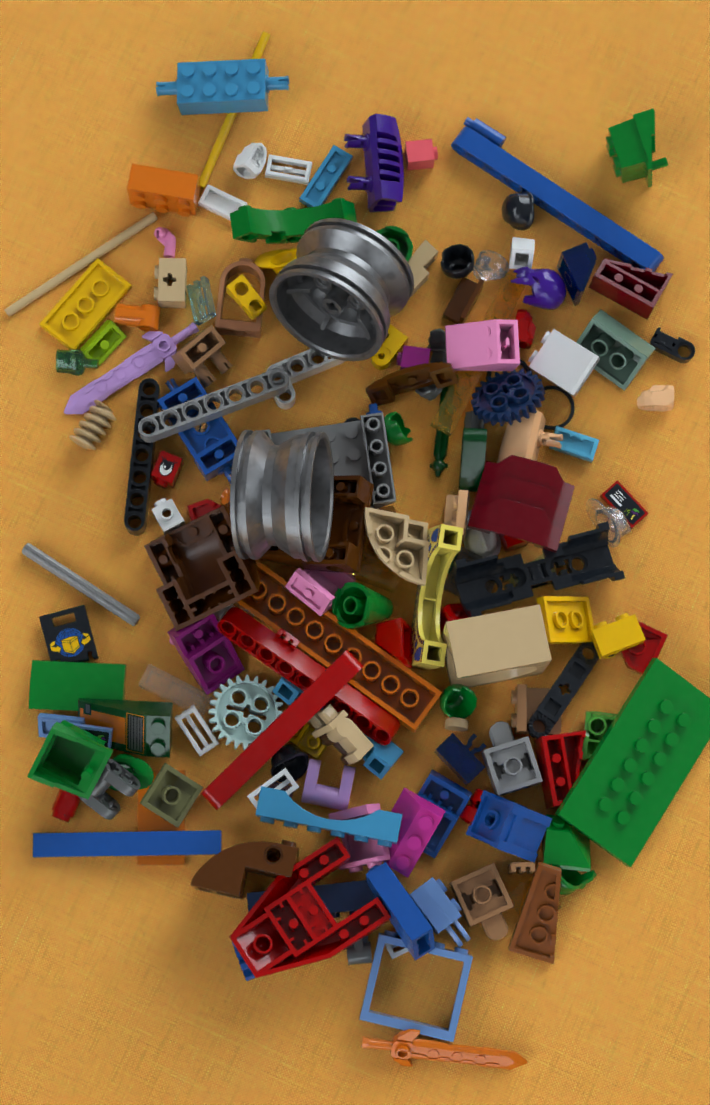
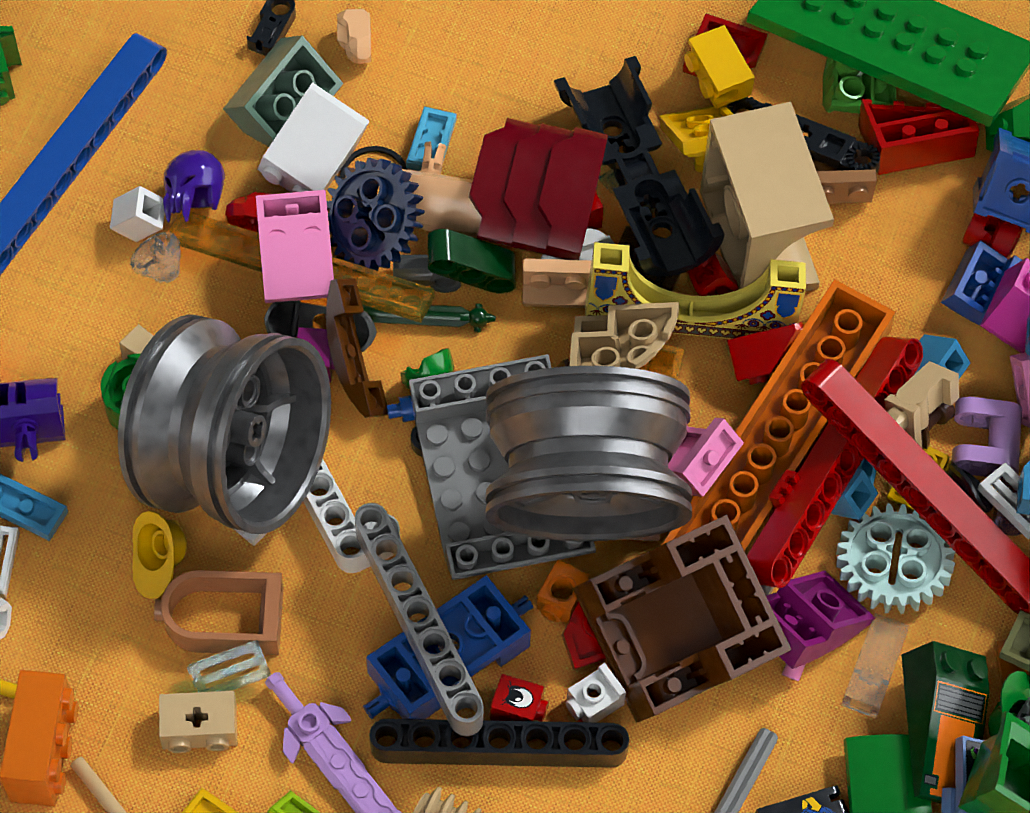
camera: 90 degrees left, 15 degrees down
(143, 317) = (258, 761): orange piece -> none
(167, 240) = (121, 735): bright pink arm -> none
(185, 714) = (916, 640): white tile -> none
(195, 352) = (318, 663): medium nougat brick -> none
(219, 202) = (59, 648): white tile -> none
(246, 297) = (226, 590): yellow leg -> none
(287, 224) = (93, 534): green brick -> none
(360, 606) = (724, 391): green cone -> none
(456, 724) = (870, 272): tan tile -> none
(457, 261) = (151, 301): black hair -> none
(458, 701) = (839, 264): green hair -> none
(460, 759) = (919, 263): clear blue brick -> none
(463, 300) = (213, 292): reddish brown panel -> none
(510, 761) = (907, 189): light grey brick -> none
(519, 210) = (65, 220): black helmet -> none
(575, 269) = (165, 130): clear blue slope -> none
(616, 520) = (540, 94): clear piece -> none
(620, 498) = (517, 77): tile -> none
(630, 286) = (187, 70): dark red wedge -> none

